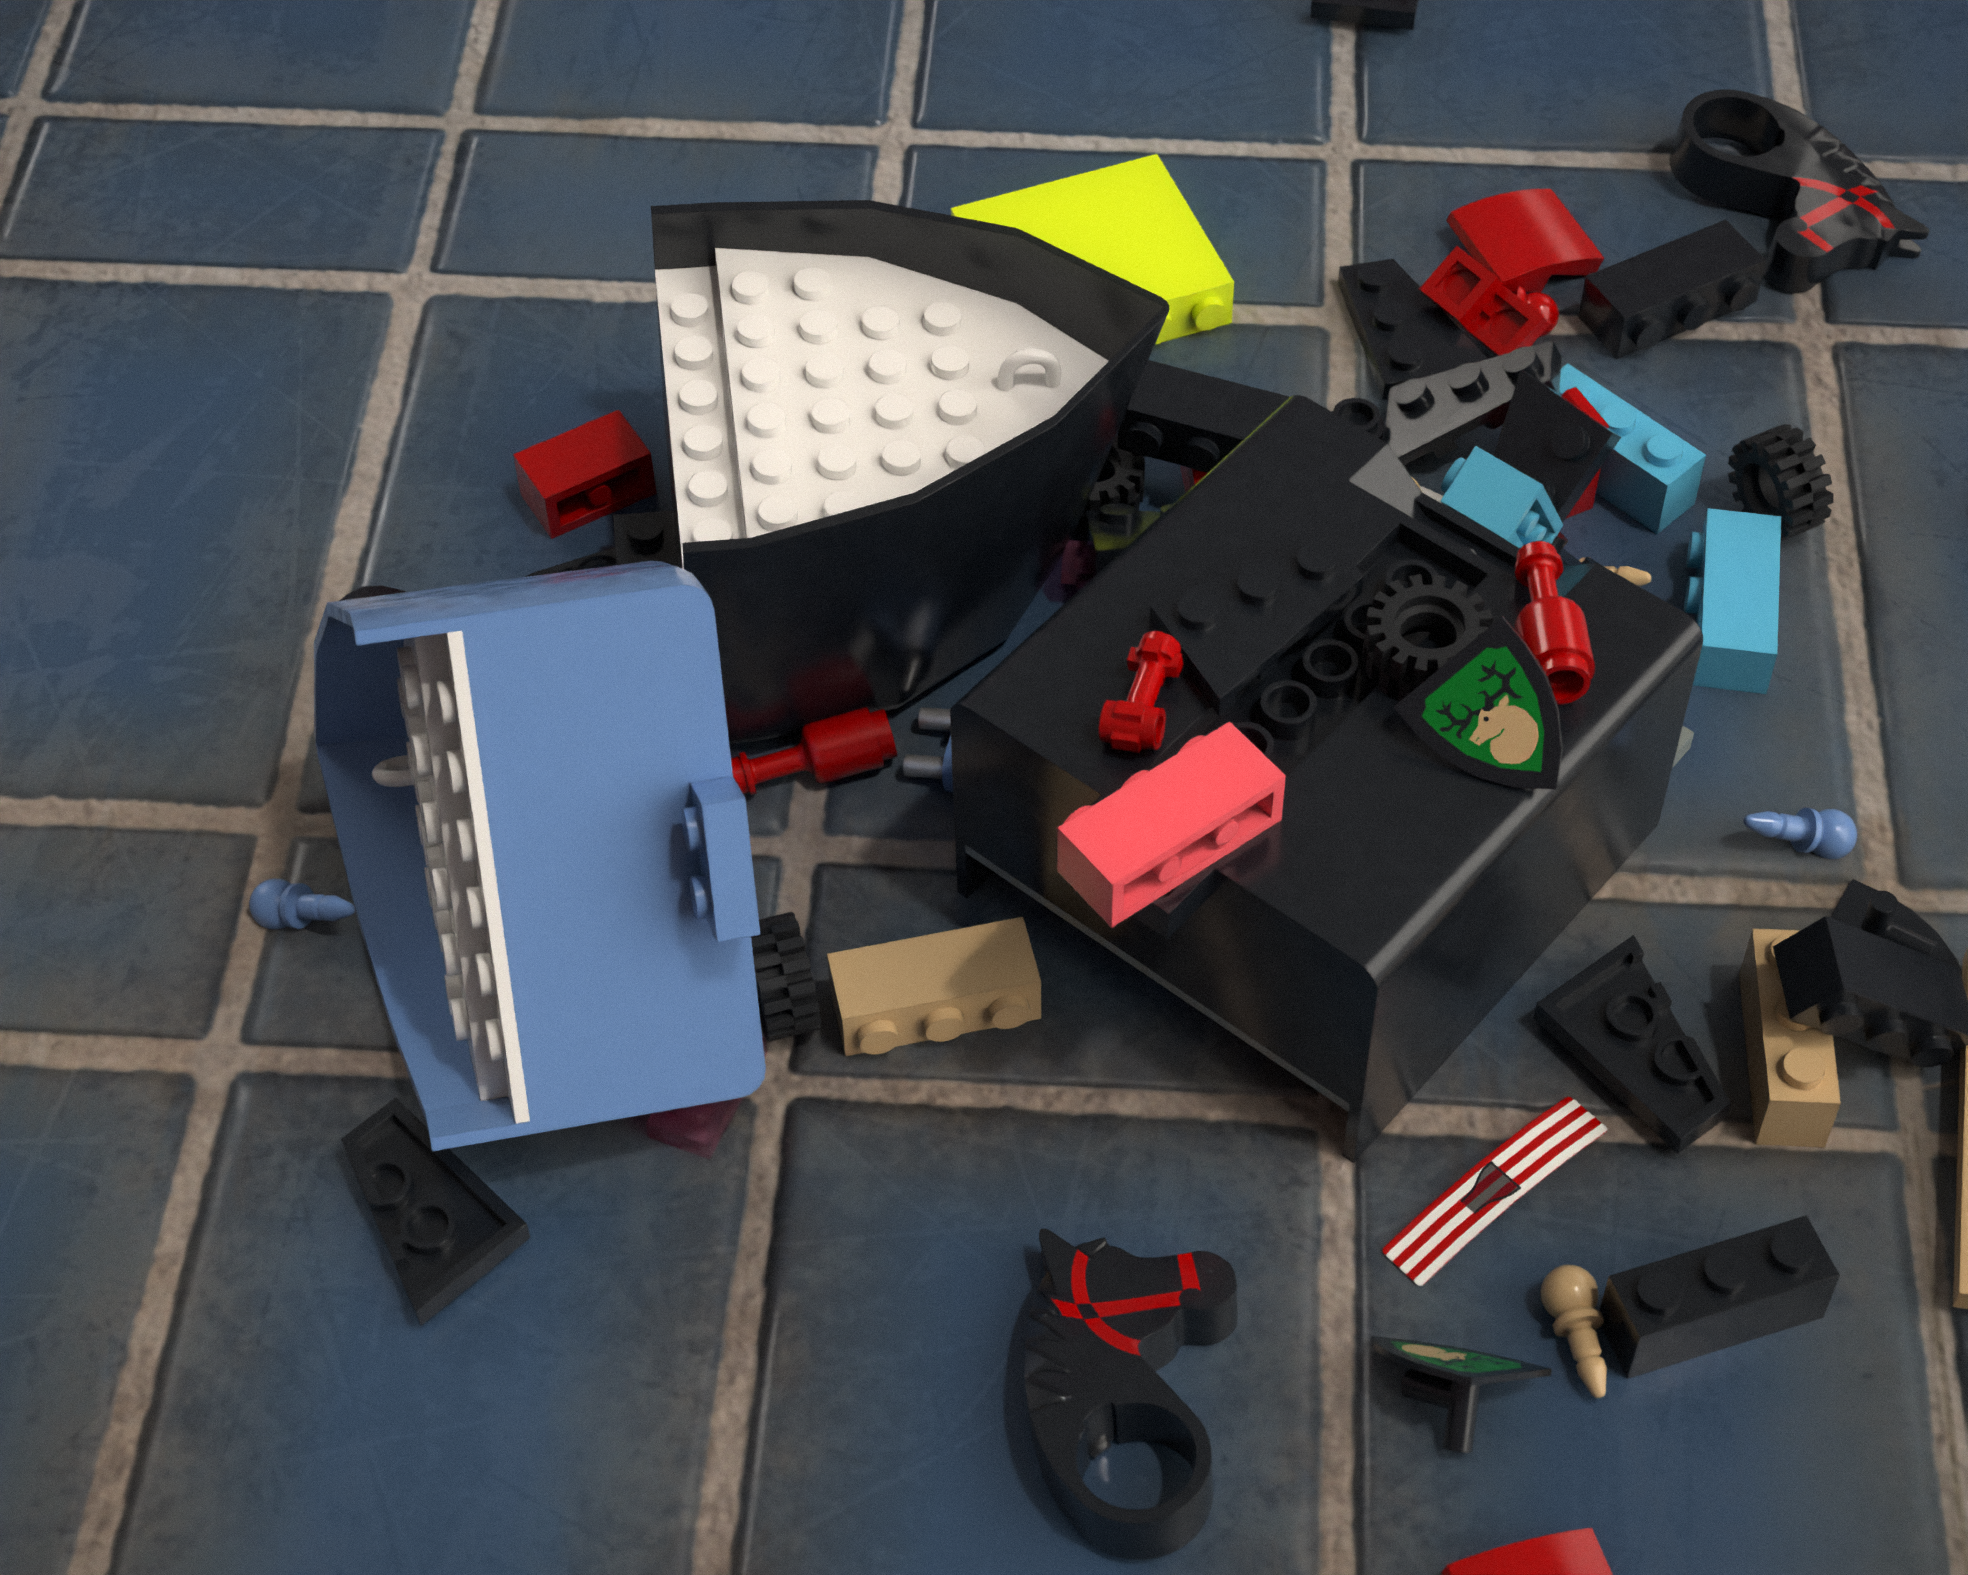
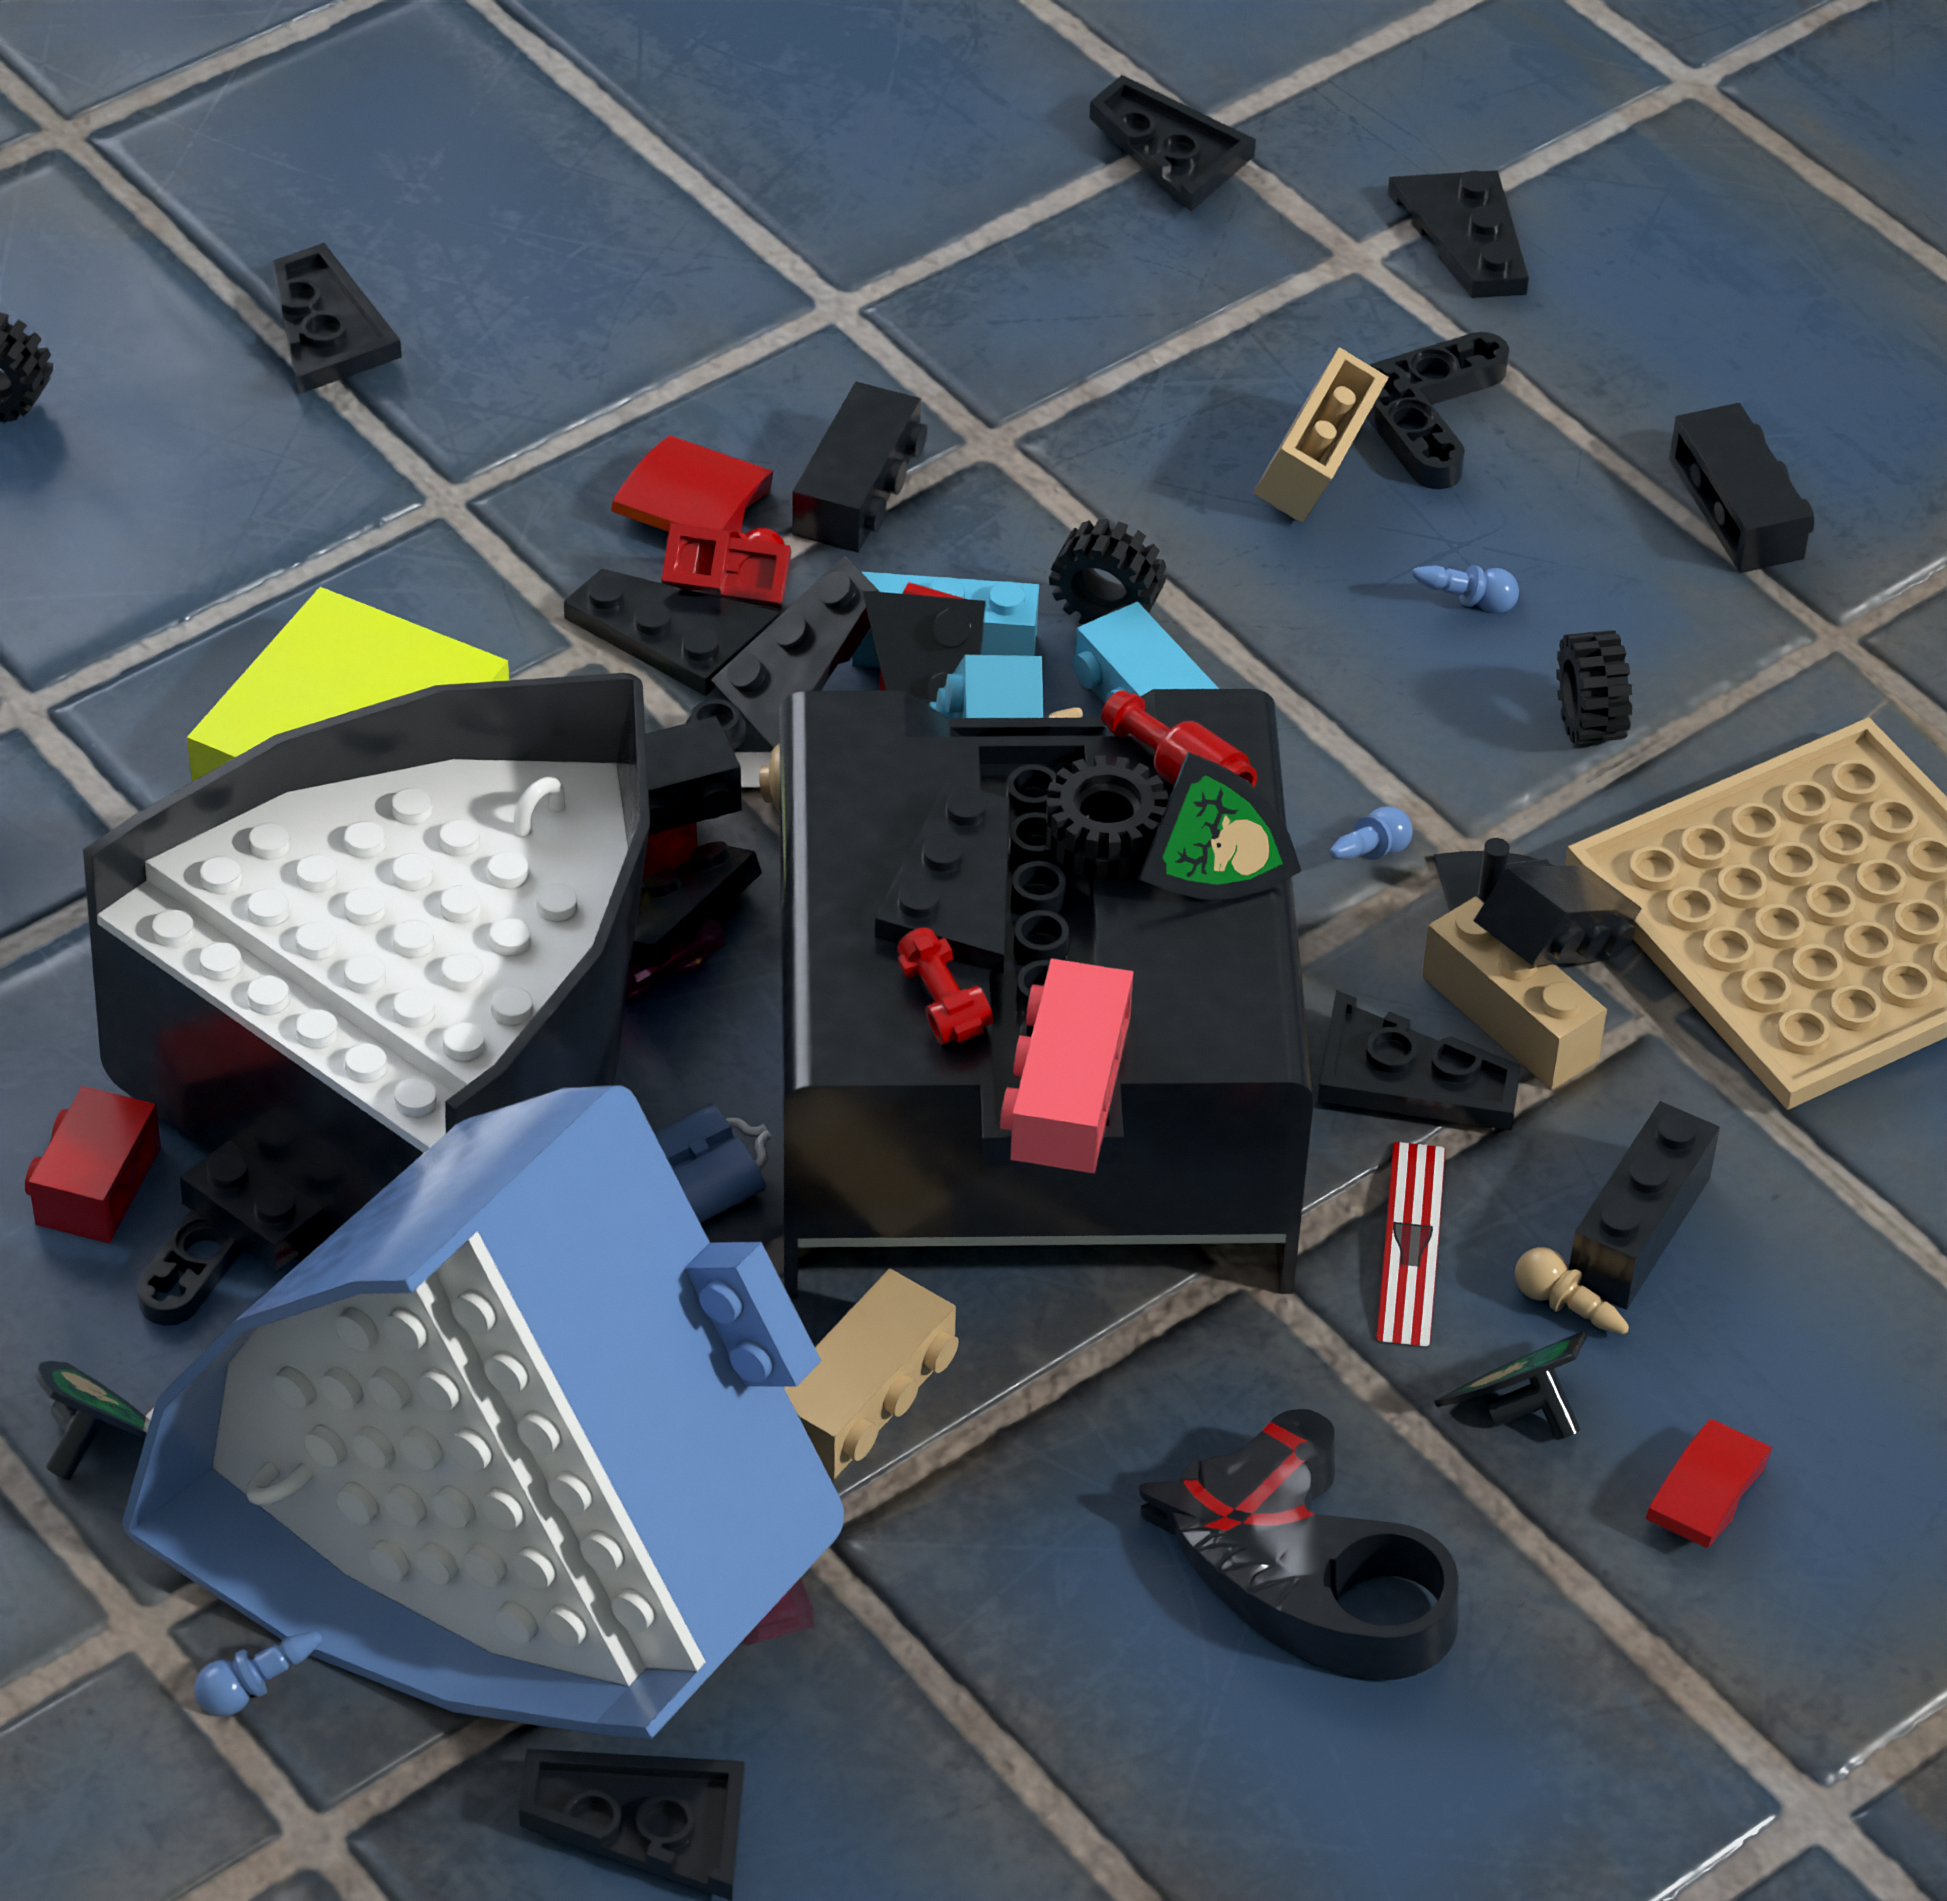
camera: 45 degrees left, 5 degrees down
(1802, 175) = (862, 316): black animal -> none

